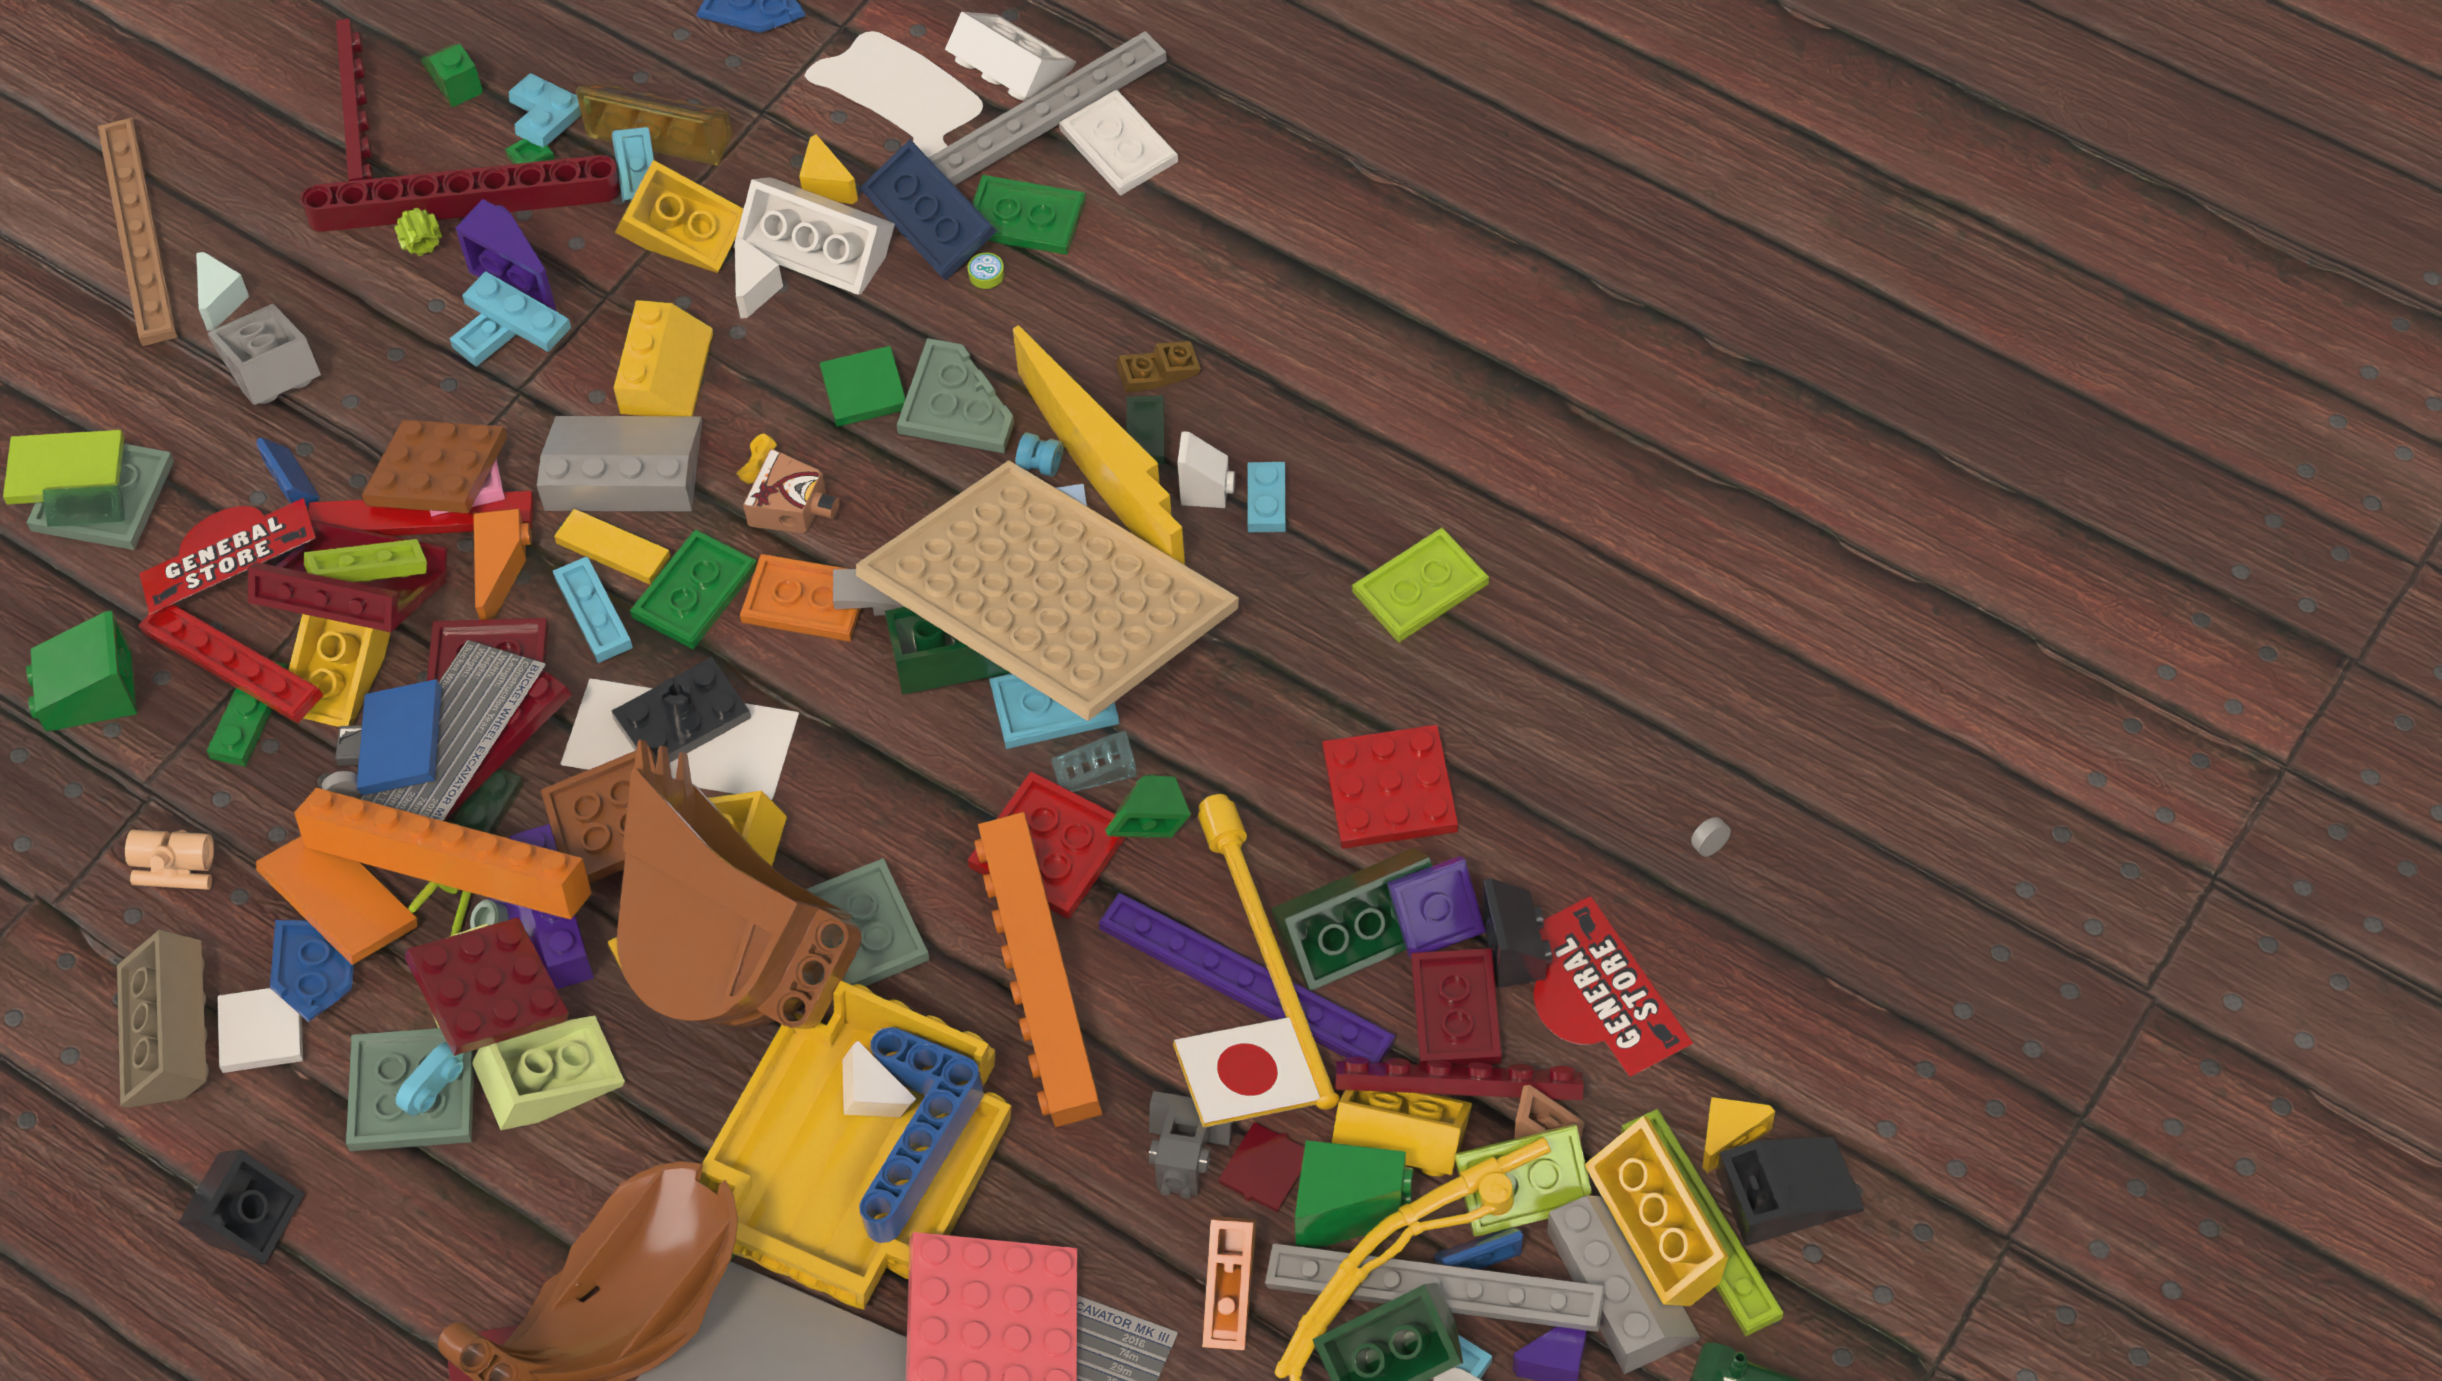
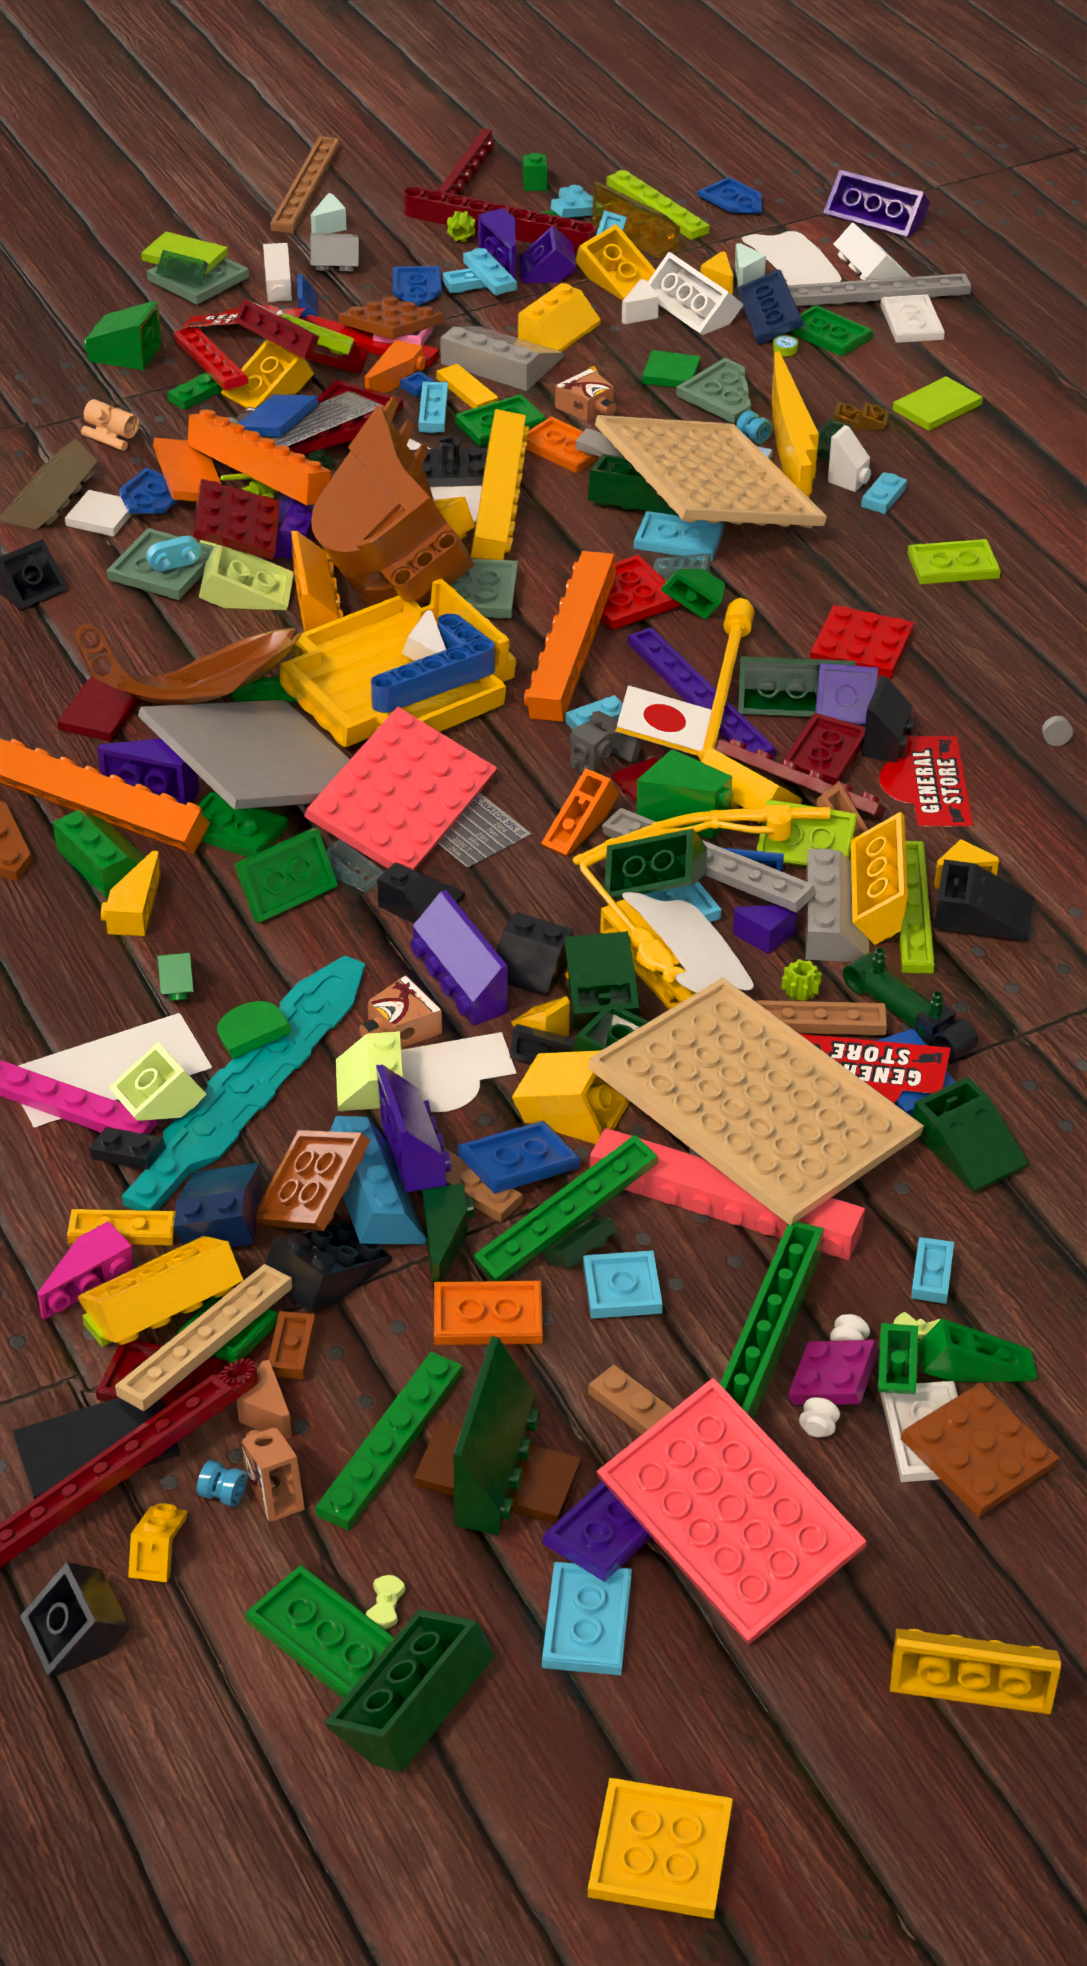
camera: 25 degrees right, 15 degrees down
(224, 450) = (277, 272): none -> white slope
(420, 370) = (417, 283): none -> blue tile
(538, 568) = (414, 382): none -> blue tile
(577, 245) = (548, 258): none -> dark purple slope
(655, 1049) = (314, 583): none -> light orange slope
(656, 60) = (629, 185): none -> lime plate
(779, 731) = (500, 486): none -> yellow brick
(852, 138) = (748, 264): none -> light aqua slope
(1147, 1072) = (610, 706): none -> medium azure plate
(1240, 294) = (937, 403): none -> lime tile

